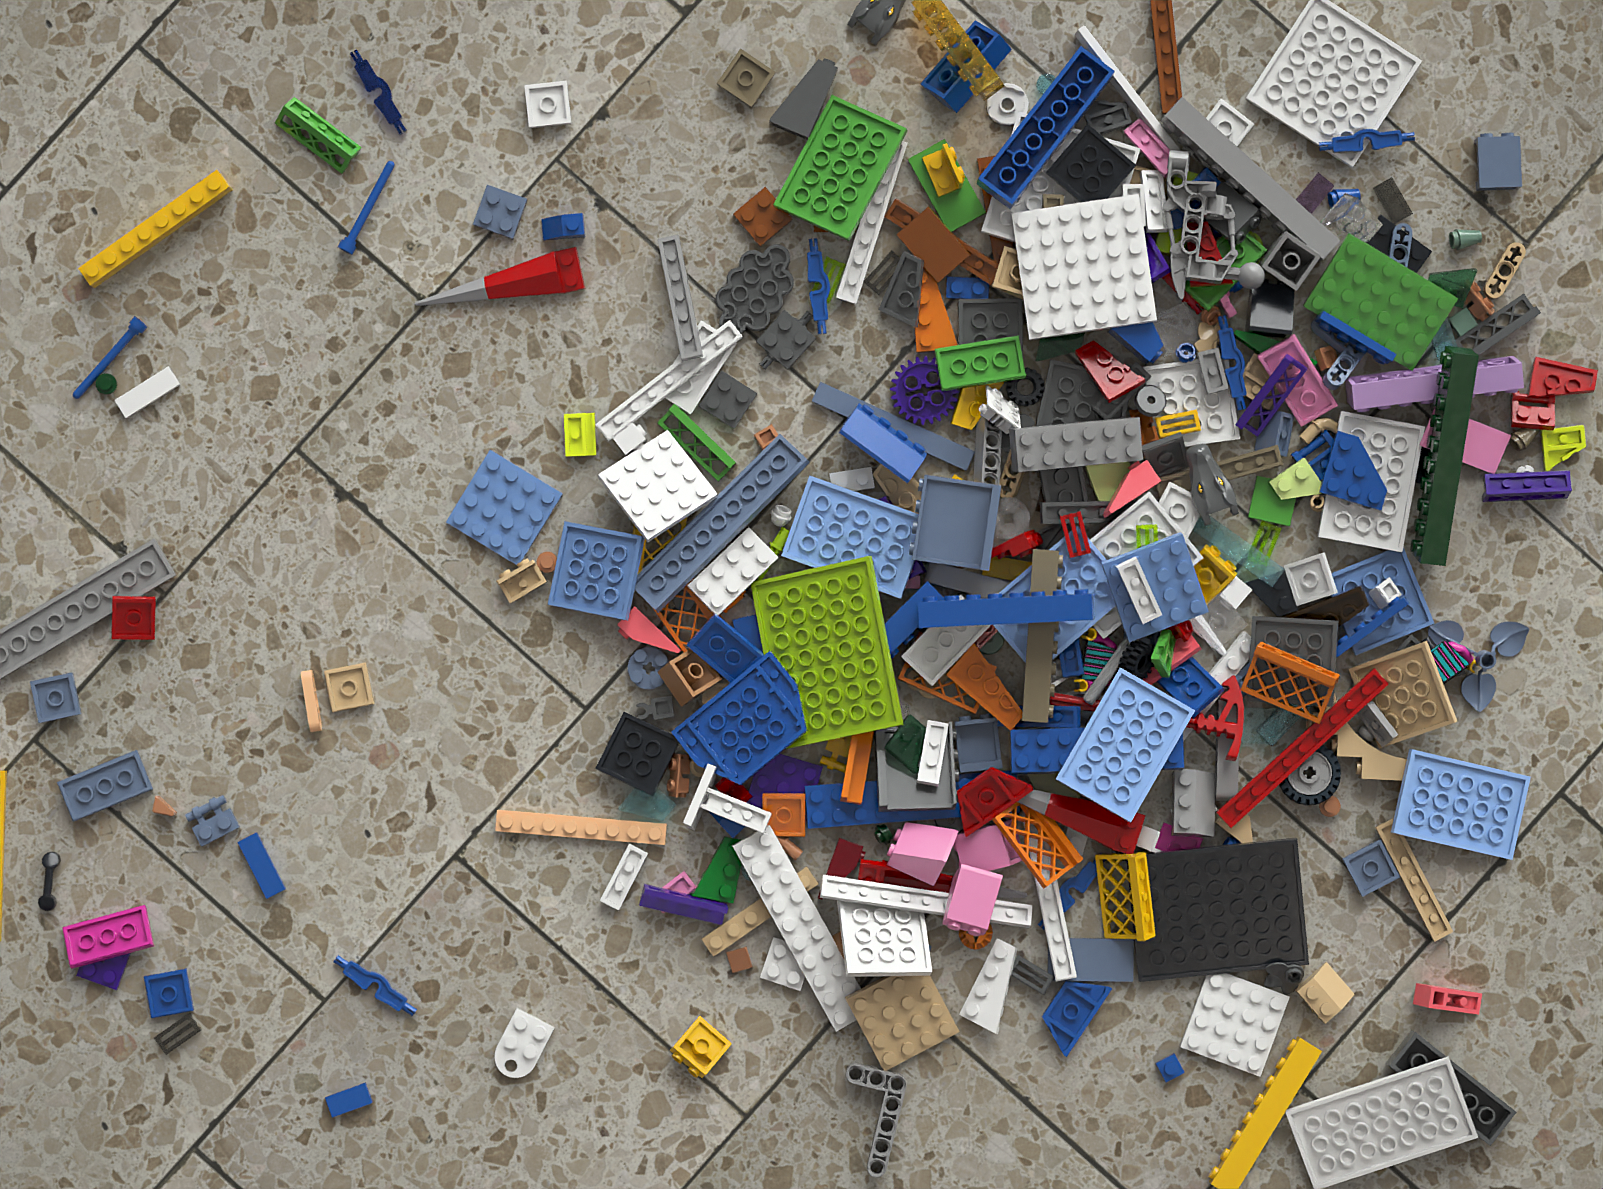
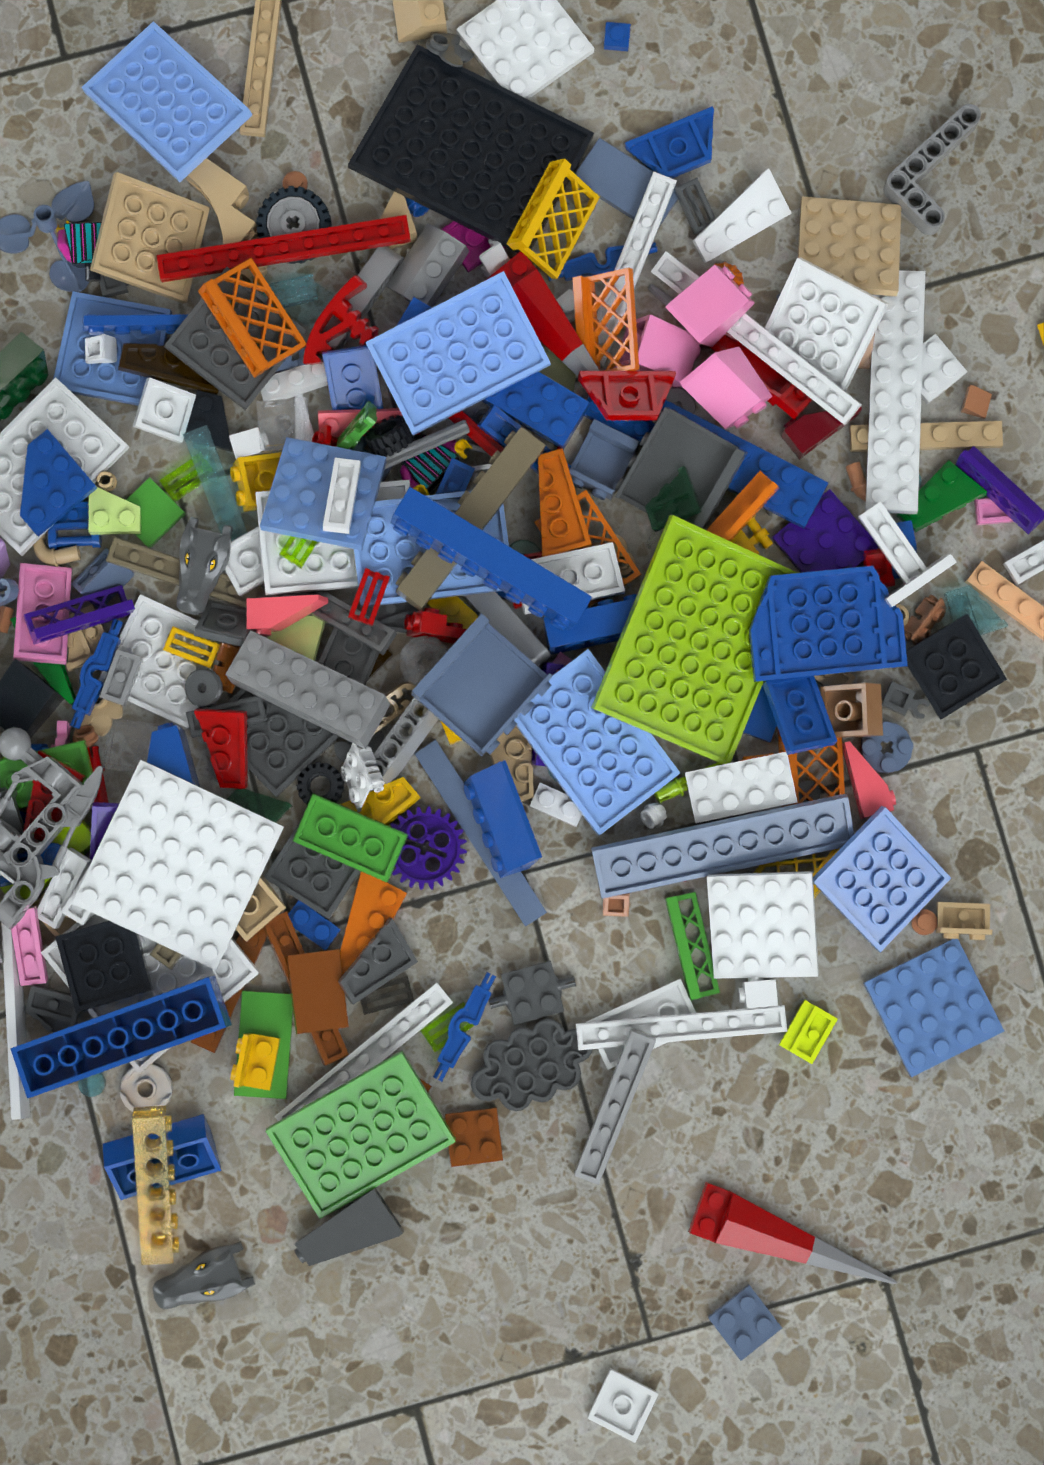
camera: 145 degrees left, 5 degrees down
(349, 243) = (926, 1393): blue piece -> none
(563, 227) = (688, 1262): blue slope -> none
(727, 399) = (631, 969): dark grey plate -> none
(746, 78) = (397, 1295): dark tan plate -> none
(787, 813) = (839, 513): orange tile -> none
(883, 834) = (755, 432): dark green plate -> none
(932, 753) = (655, 476): white plate -> none
(1186, 347) = (131, 719): blue plate -> none
(1371, 867) = (294, 100): sand blue plate -> none
(1375, 725) = (195, 227): light grey plate -> none

